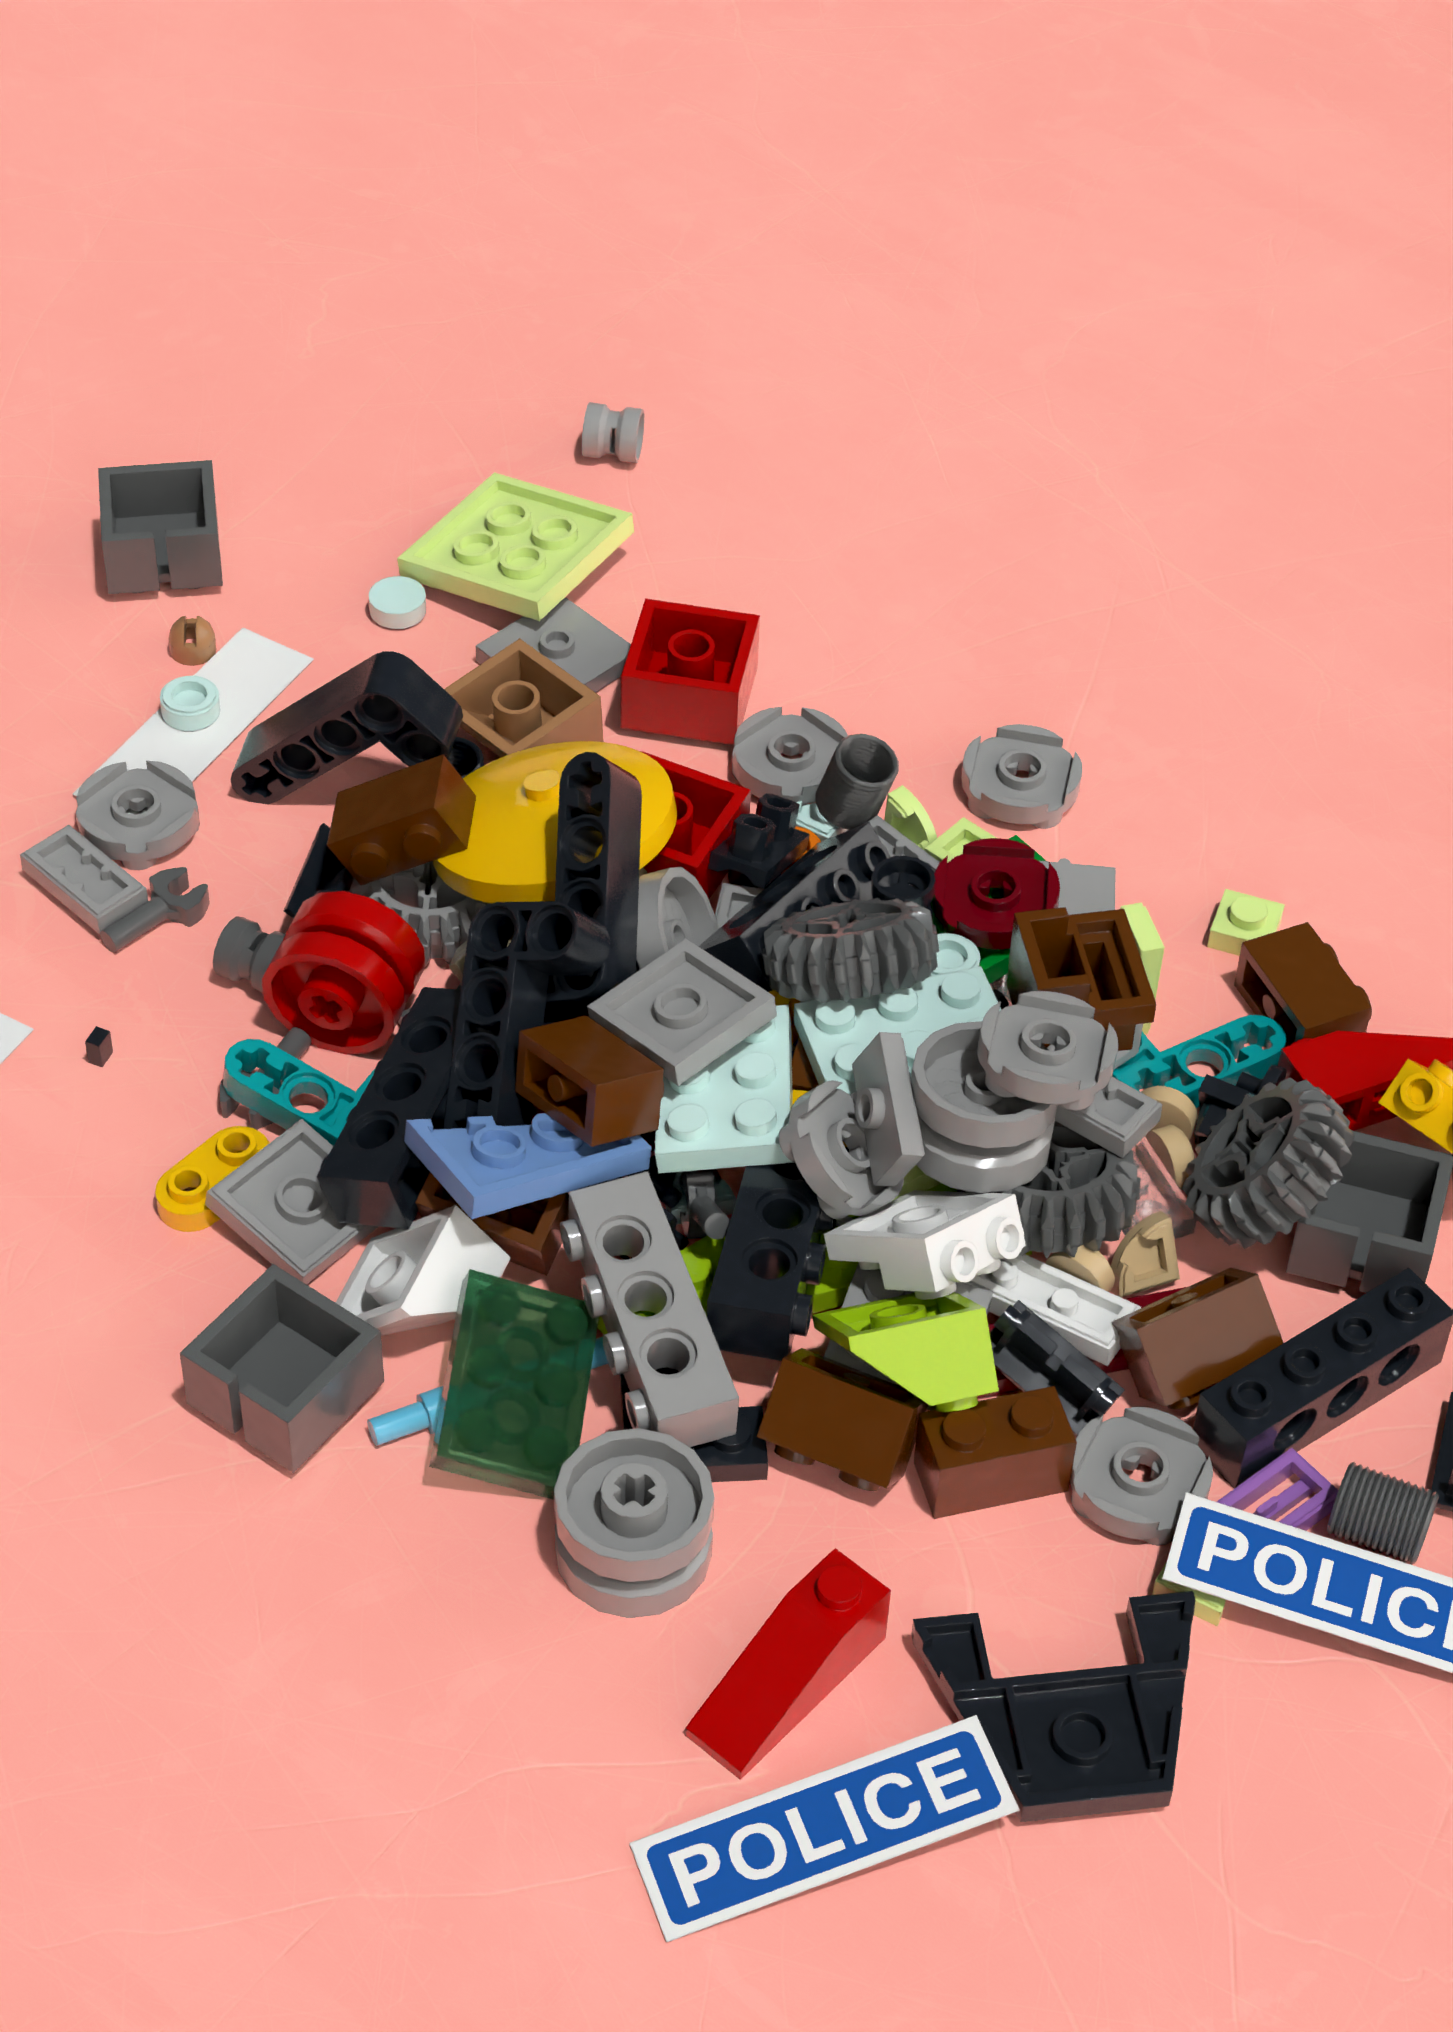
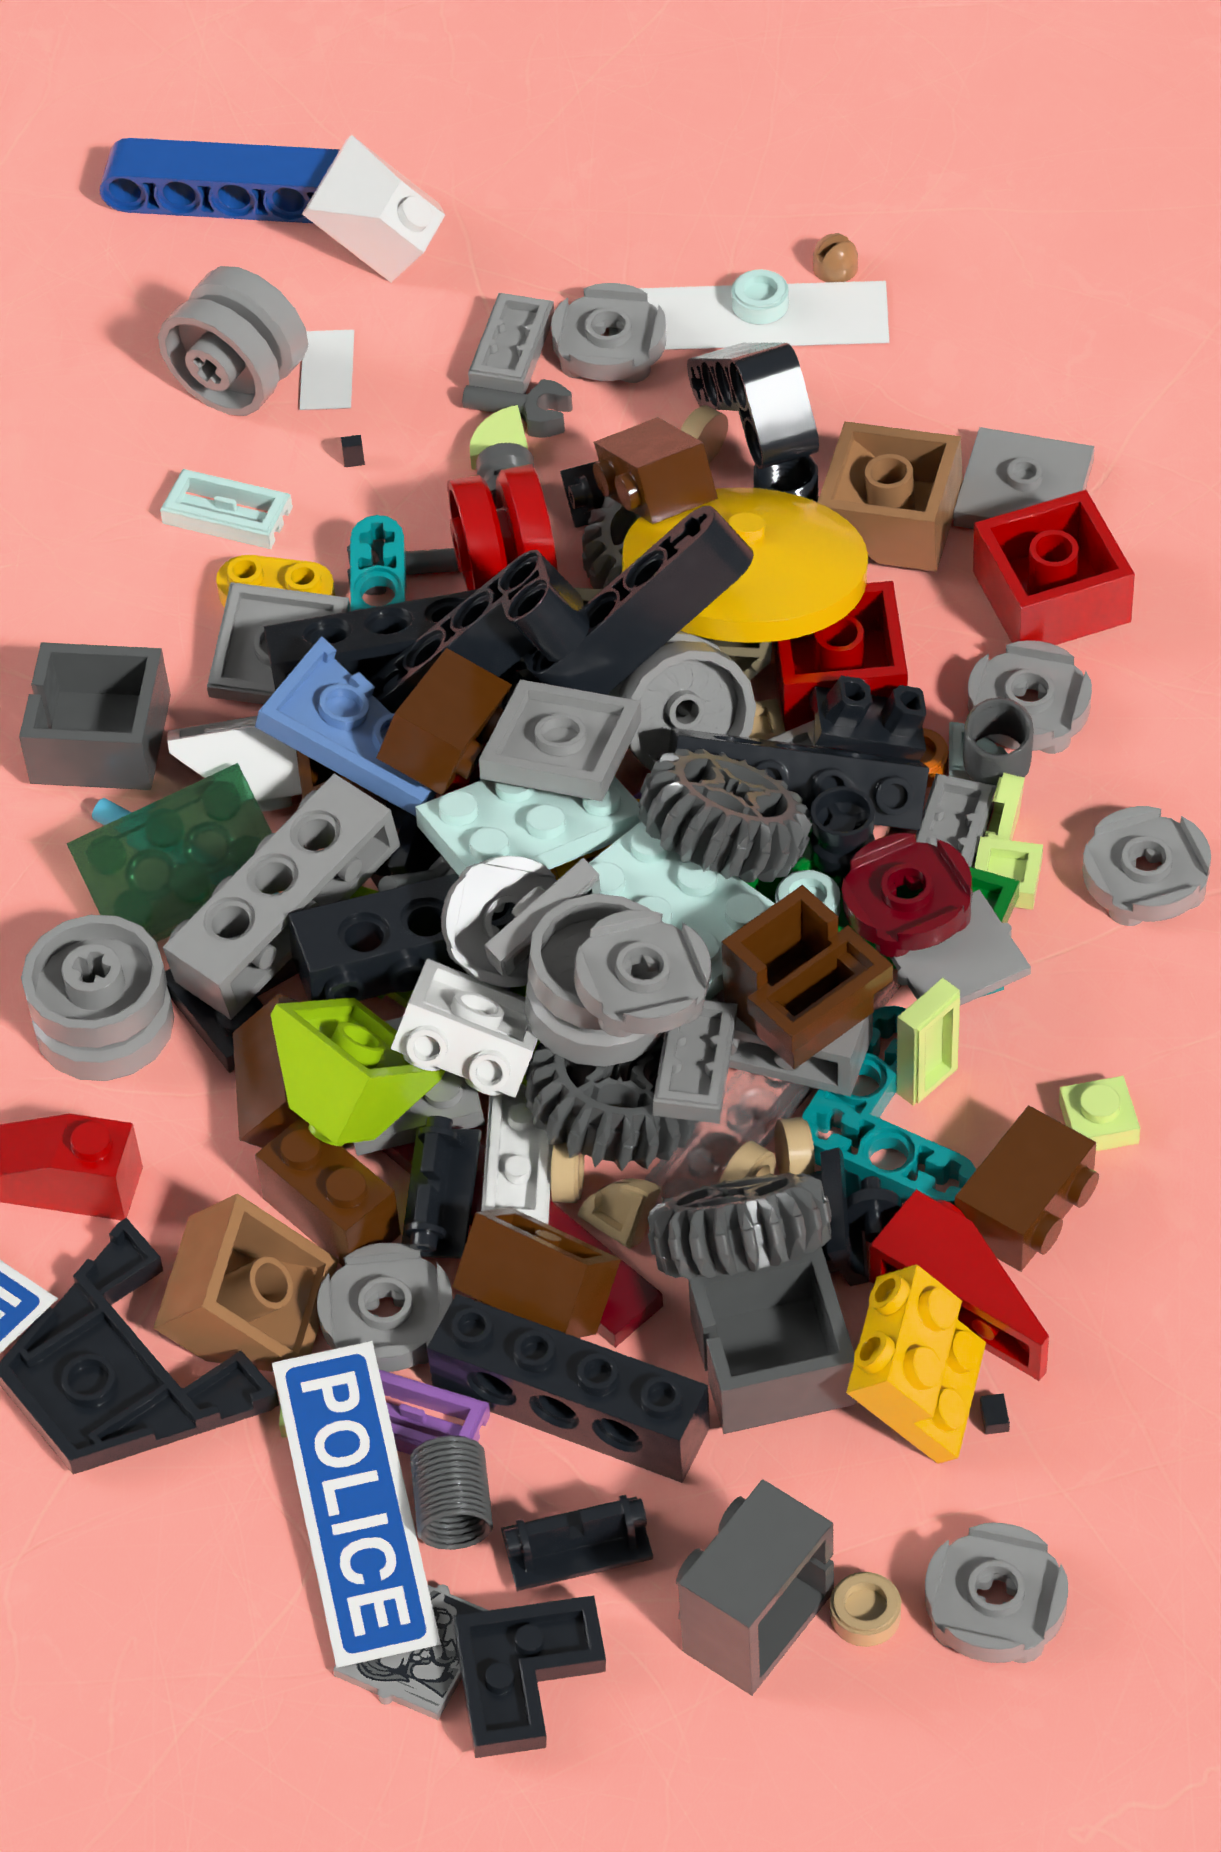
camera: 65 degrees right, 5 degrees up
(84, 1176) = (222, 515): none -> light aqua tile
(159, 526) = (922, 159): dark grey piece -> none
(187, 941) = (499, 427): none -> yellowish green tile
(320, 800) = (709, 427): none -> tan tile
(397, 602) = (995, 353): light aqua tile -> none
(516, 546) = (1118, 385): yellowish green plate -> none
(1052, 1569) = (244, 1286): none -> medium nougat slope

